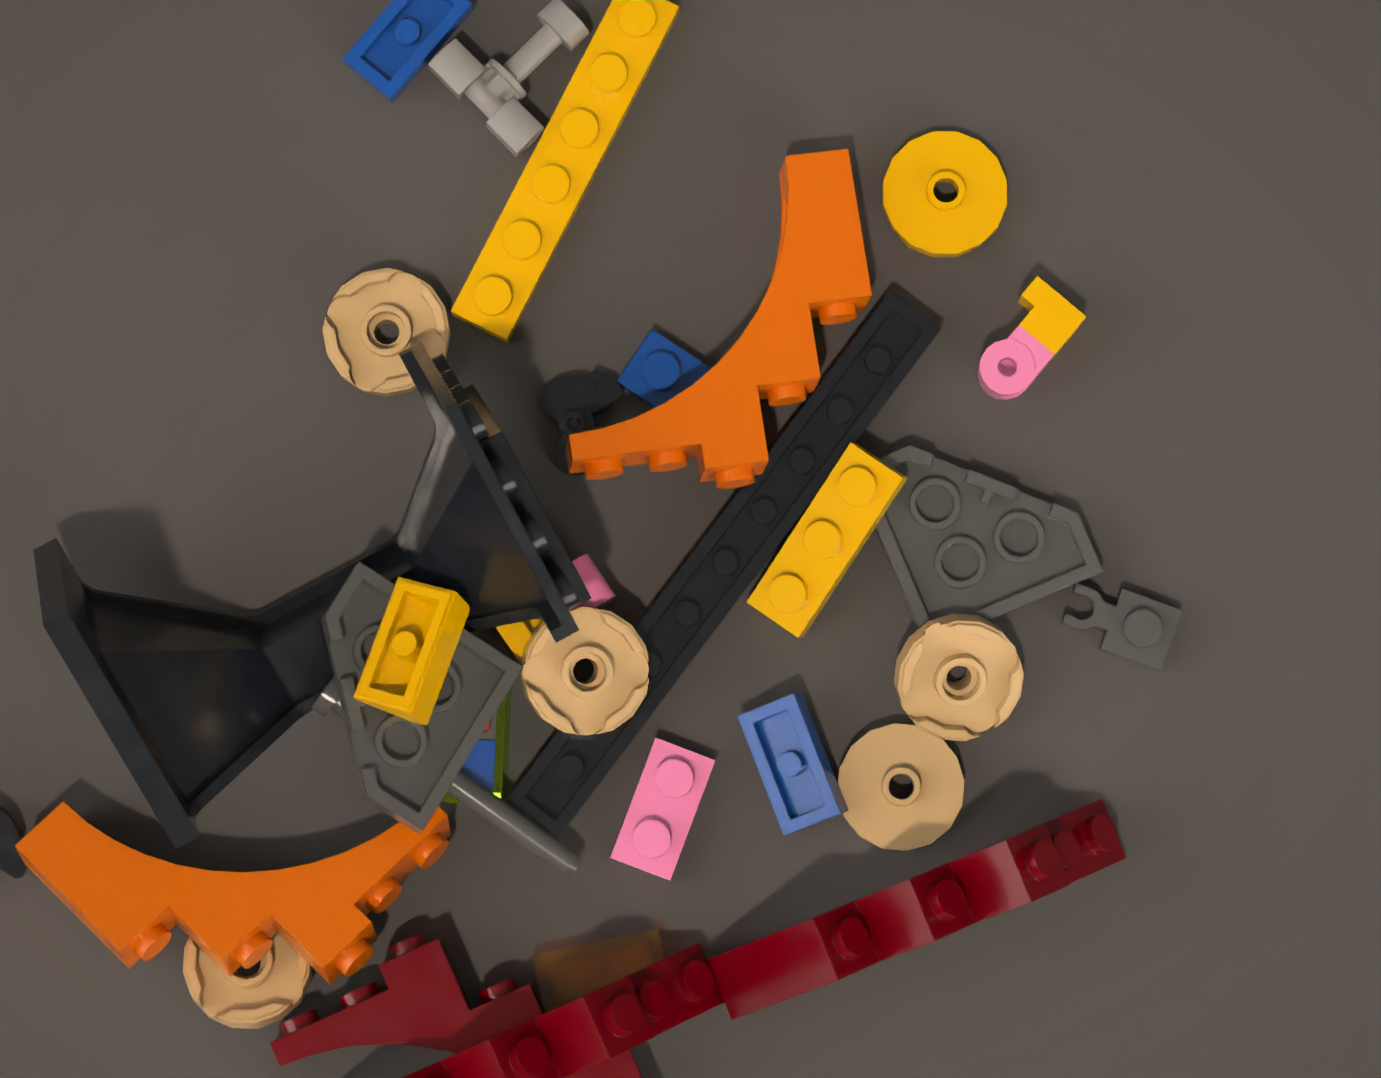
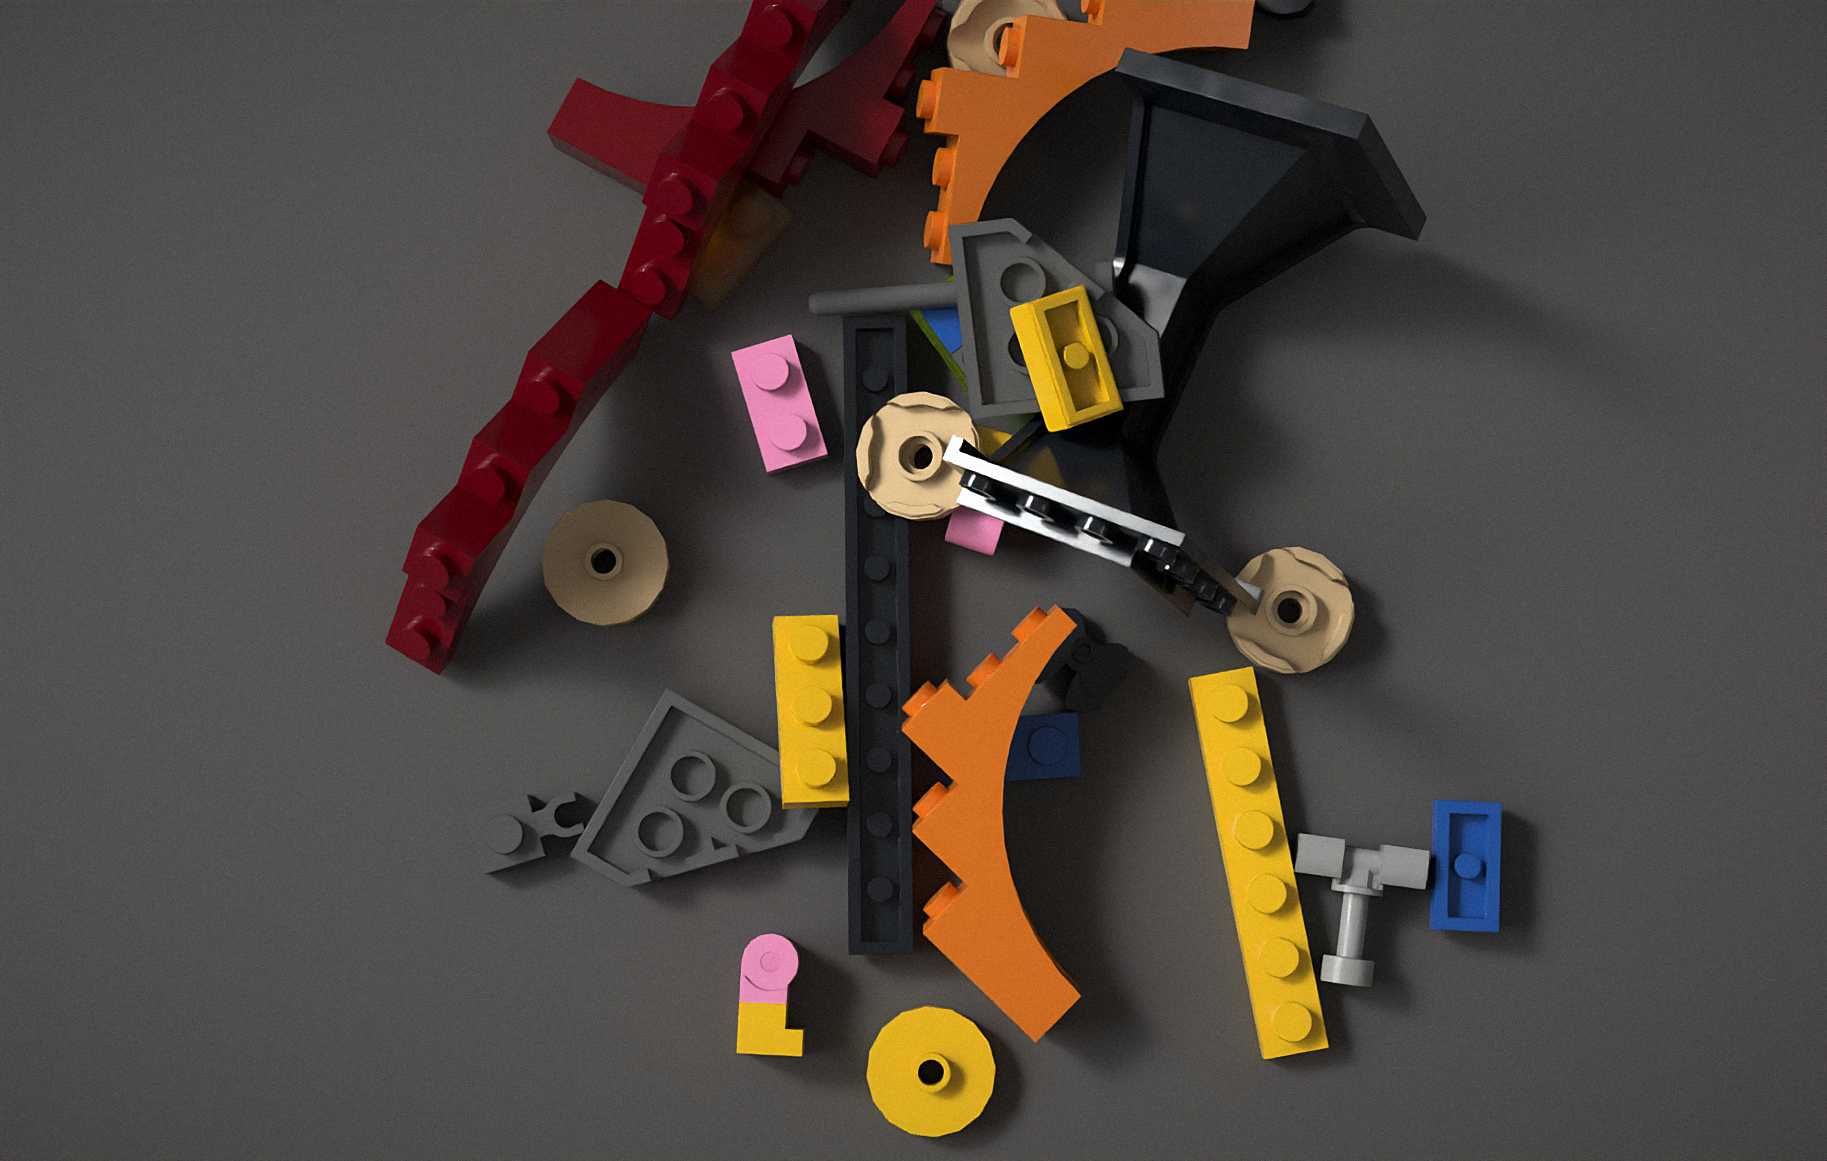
camera: 145 degrees right, 0 degrees up
(792, 763) = (703, 514): plate -> none
(977, 700) = (602, 665): tan plate -> none

